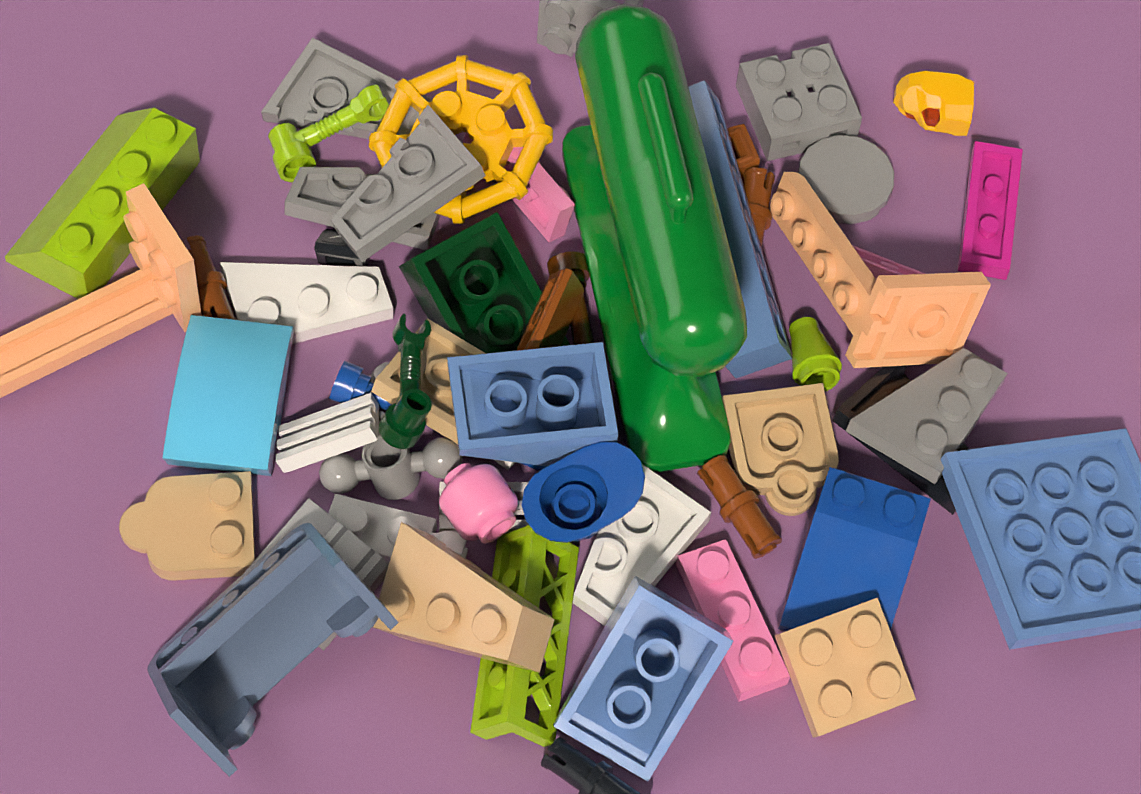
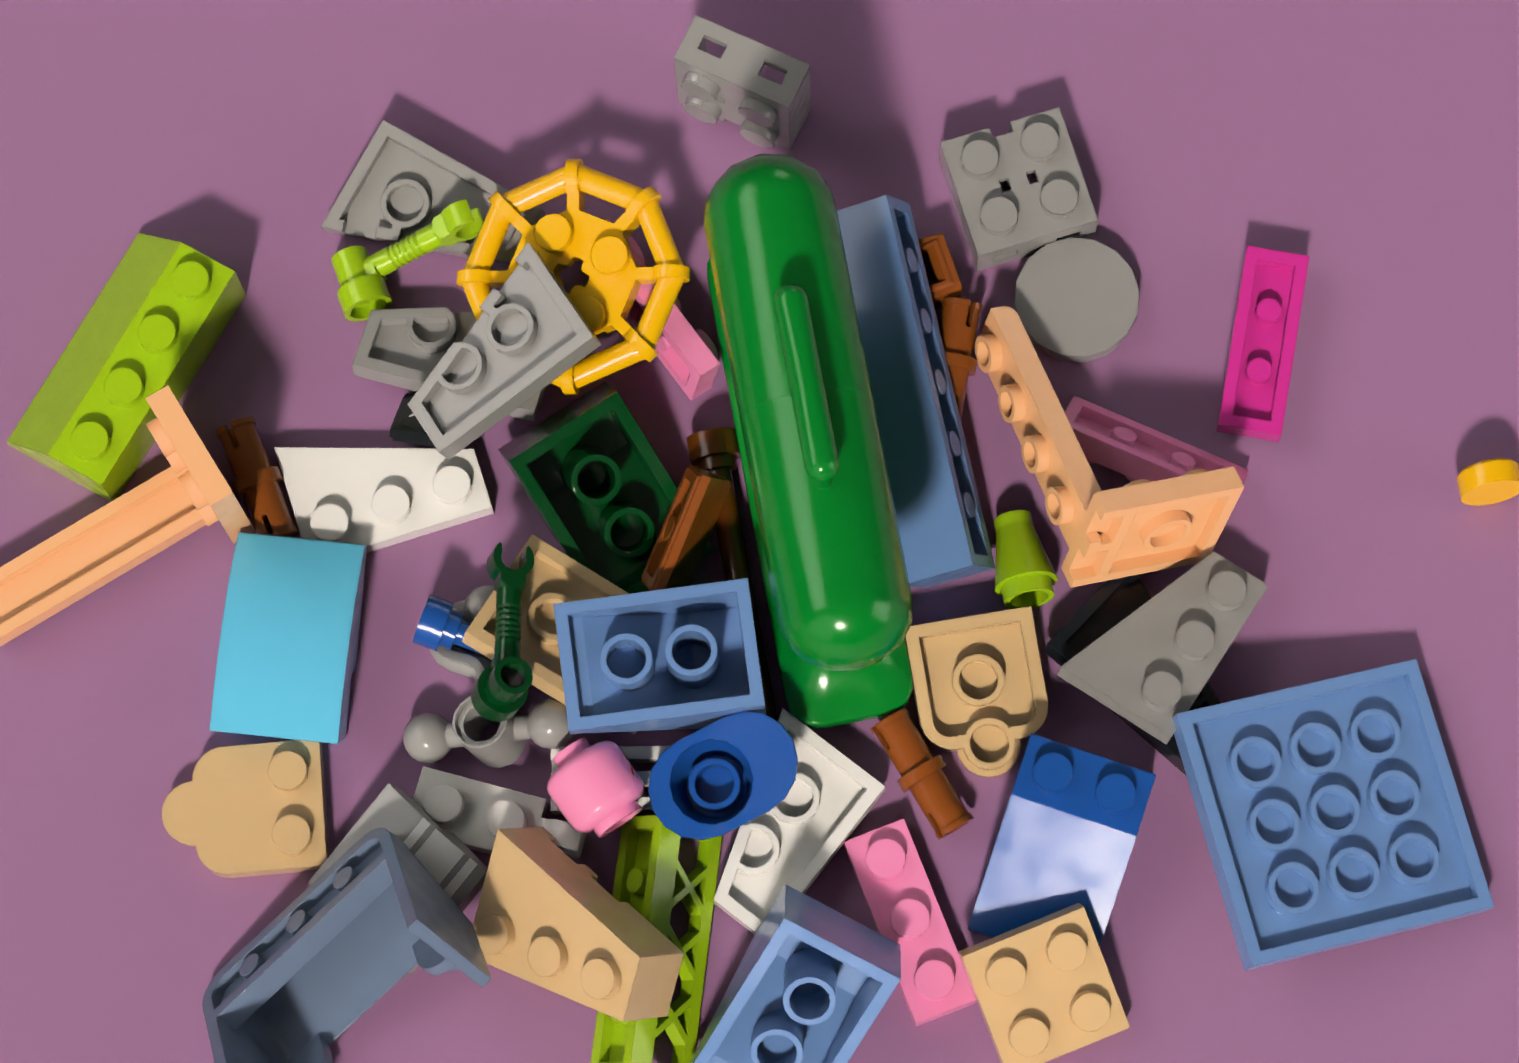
camera: 10 degrees right, 15 degrees up
(328, 433) = (411, 680): white tile -> none
(936, 101) = (1199, 187): yellow rock -> none

